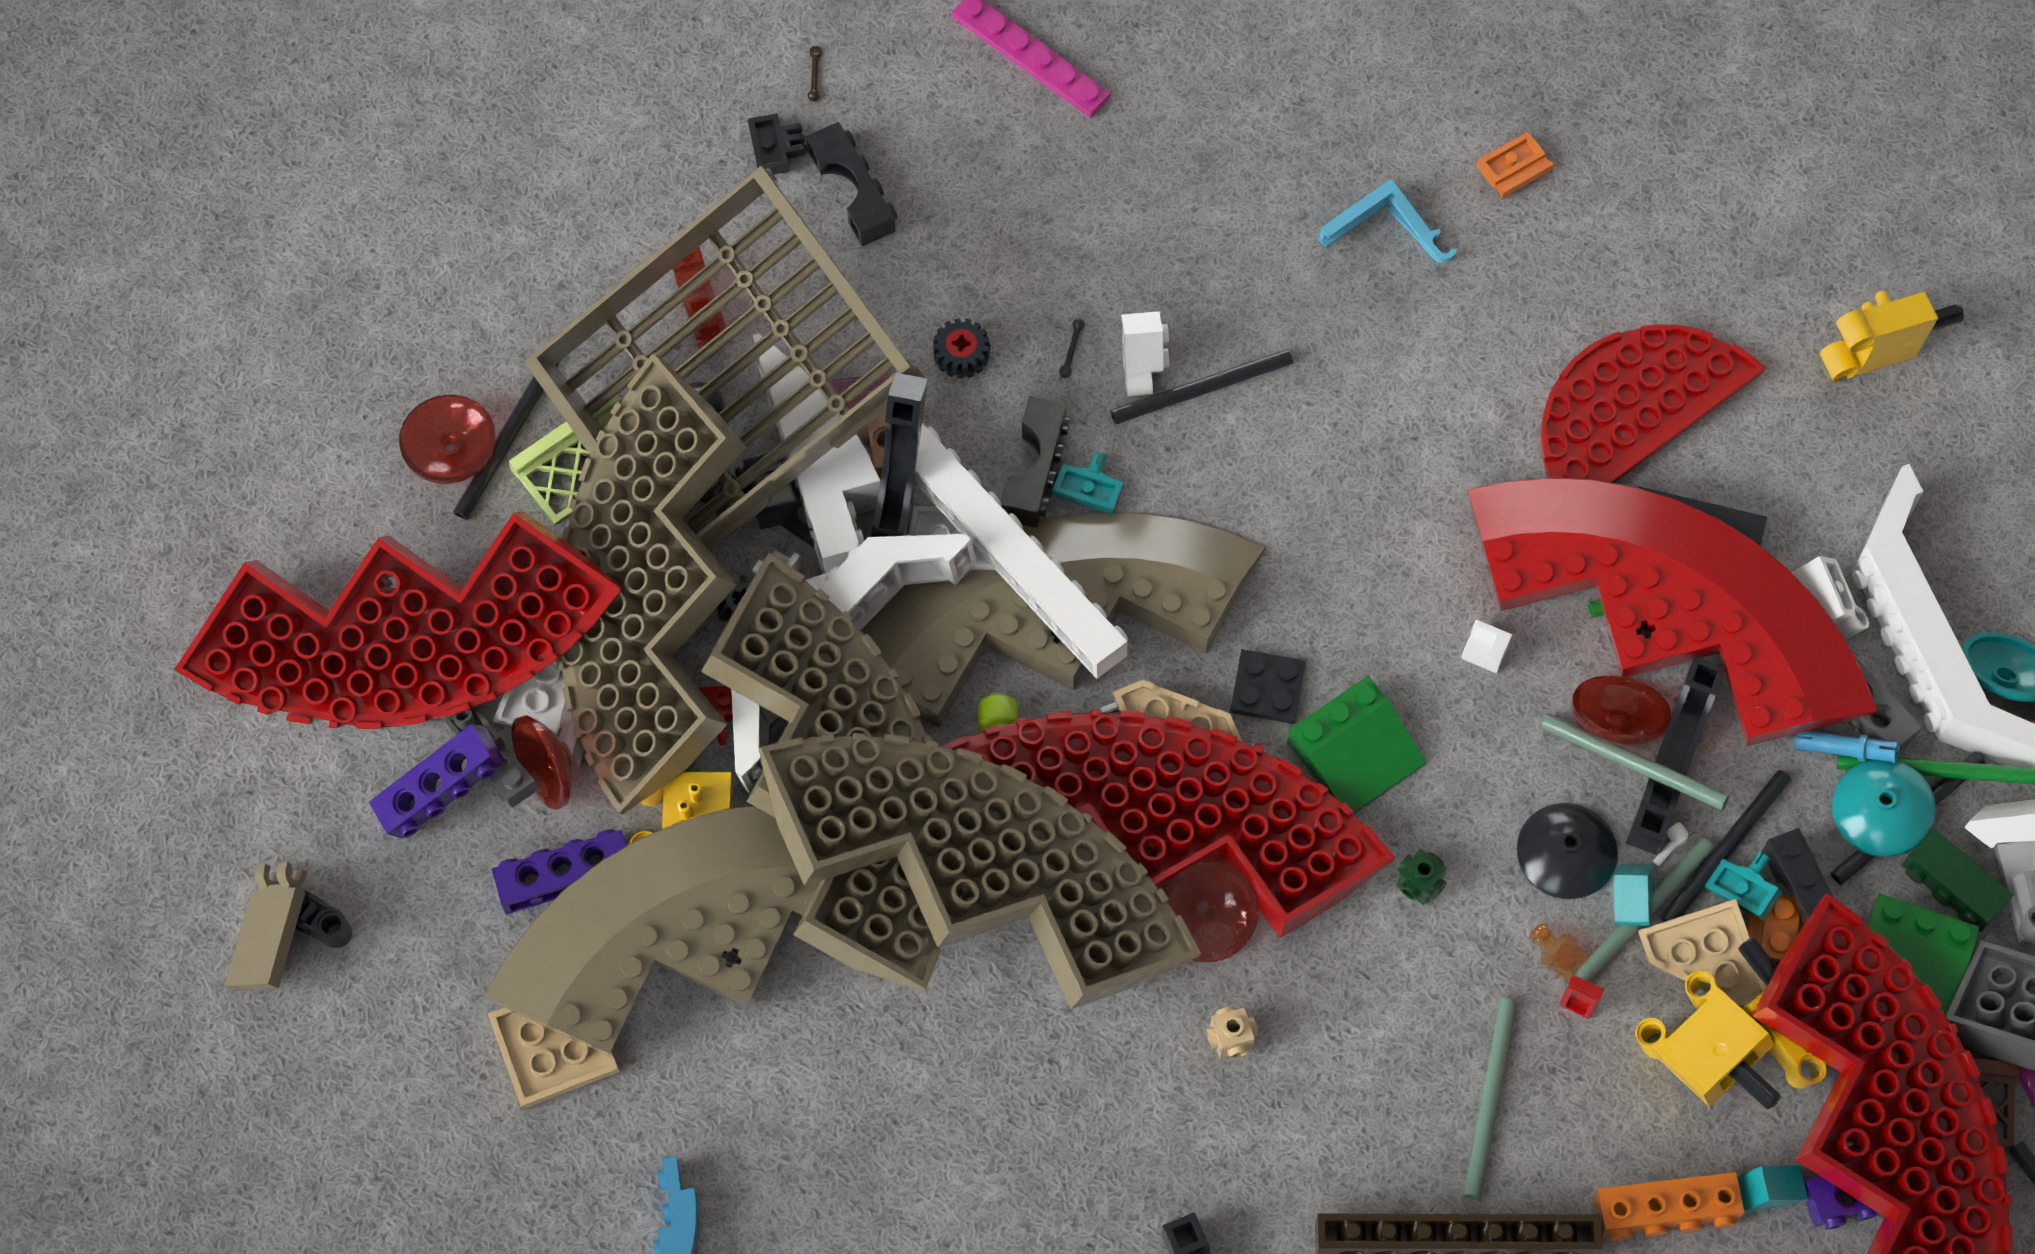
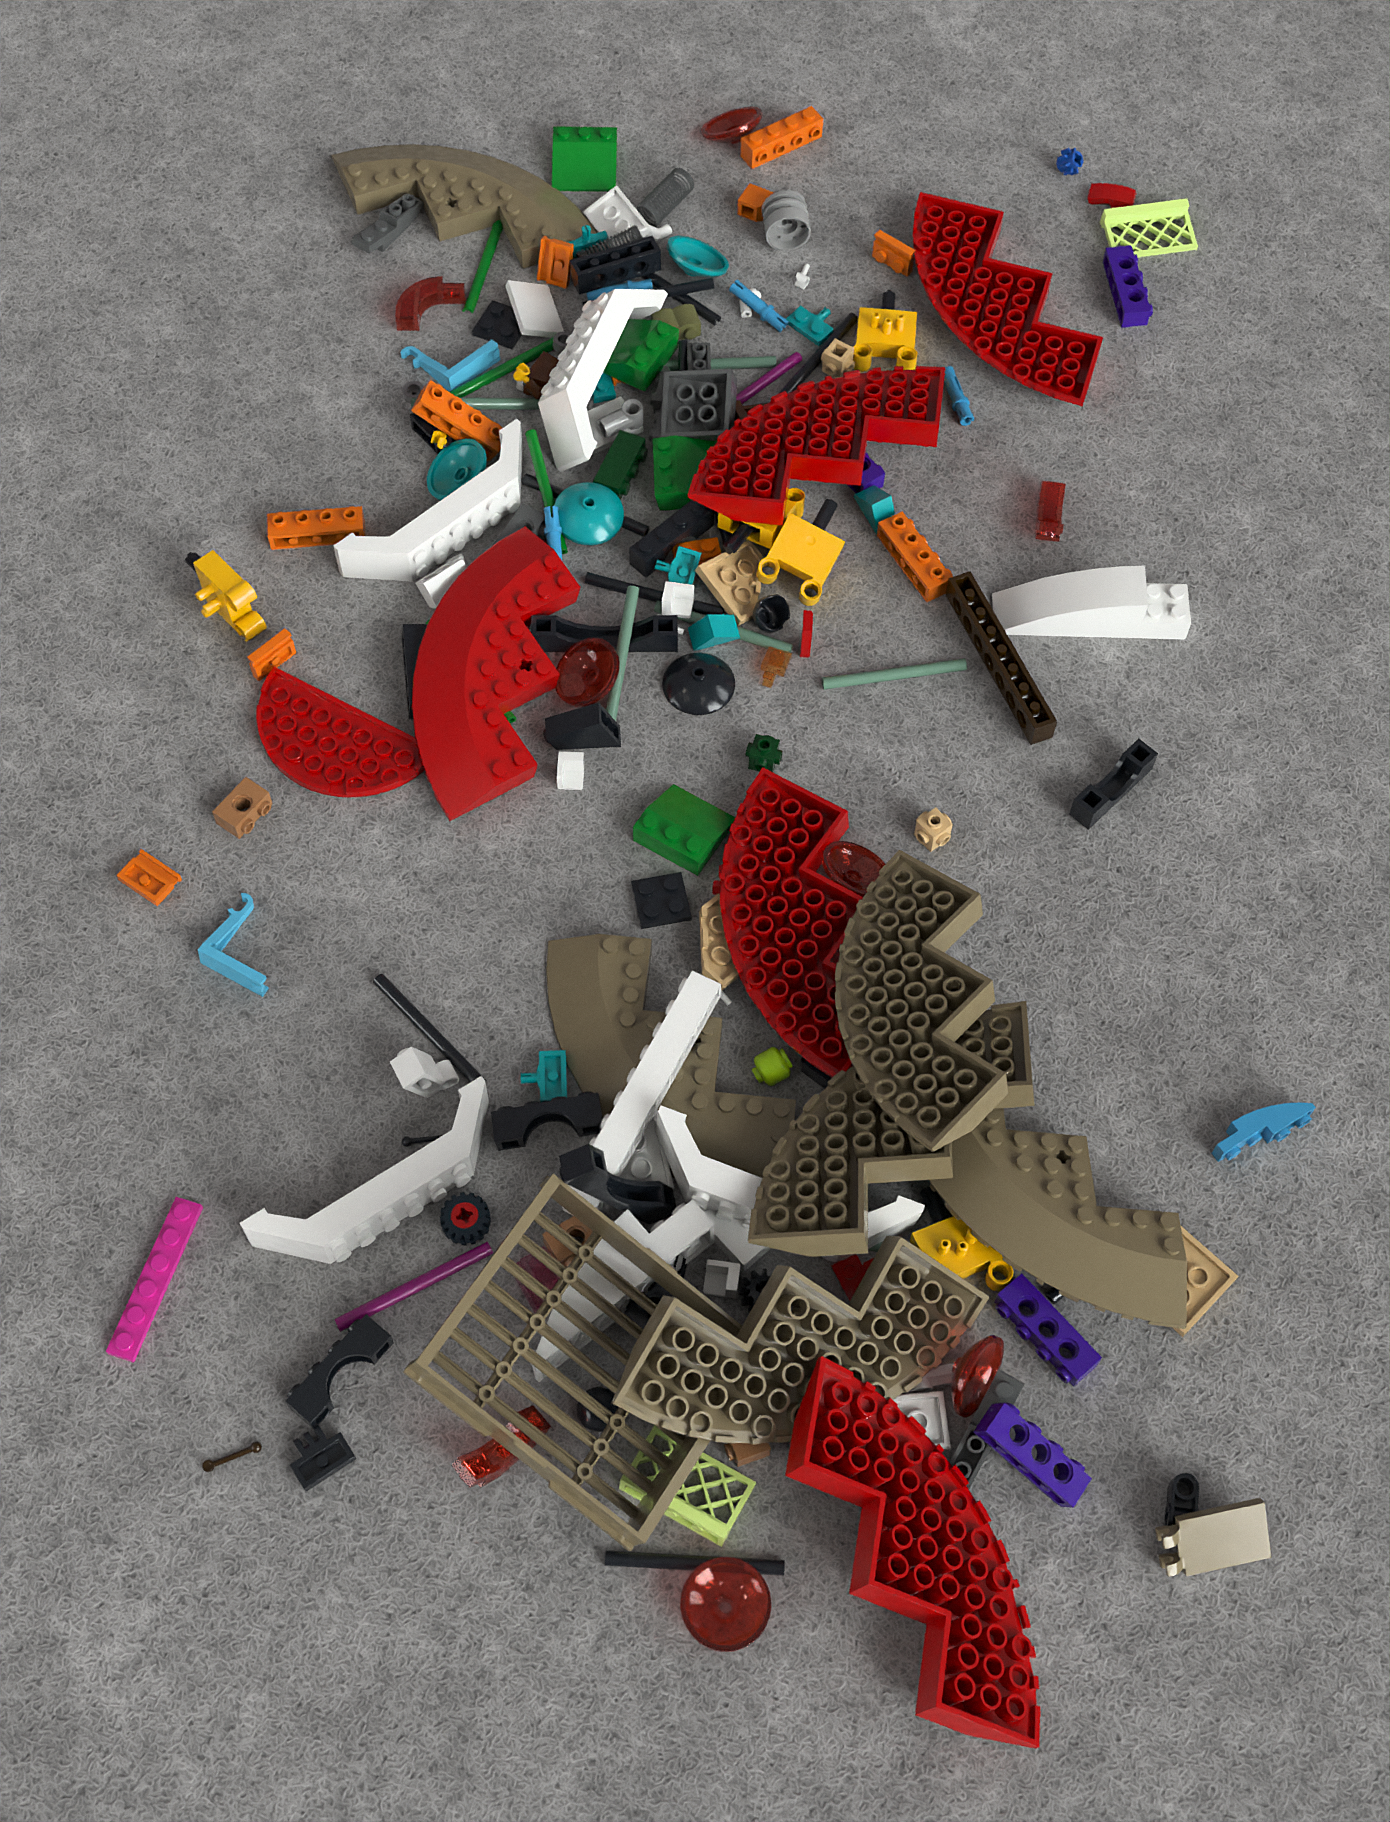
camera: 115 degrees left, 5 degrees down
(912, 281) = (414, 1285): none -> magenta piece
(1012, 283) = (385, 1198): none -> white slope
(1537, 681) = (582, 729): none -> black slope
(1569, 264) = (244, 795): none -> medium nougat brick
(1640, 968) = (769, 611): none -> black hair
(1695, 859) = (678, 599): none -> white panel
(1781, 367) = (271, 654): none -> orange plate
(1972, 478) = (314, 527): none -> orange brick

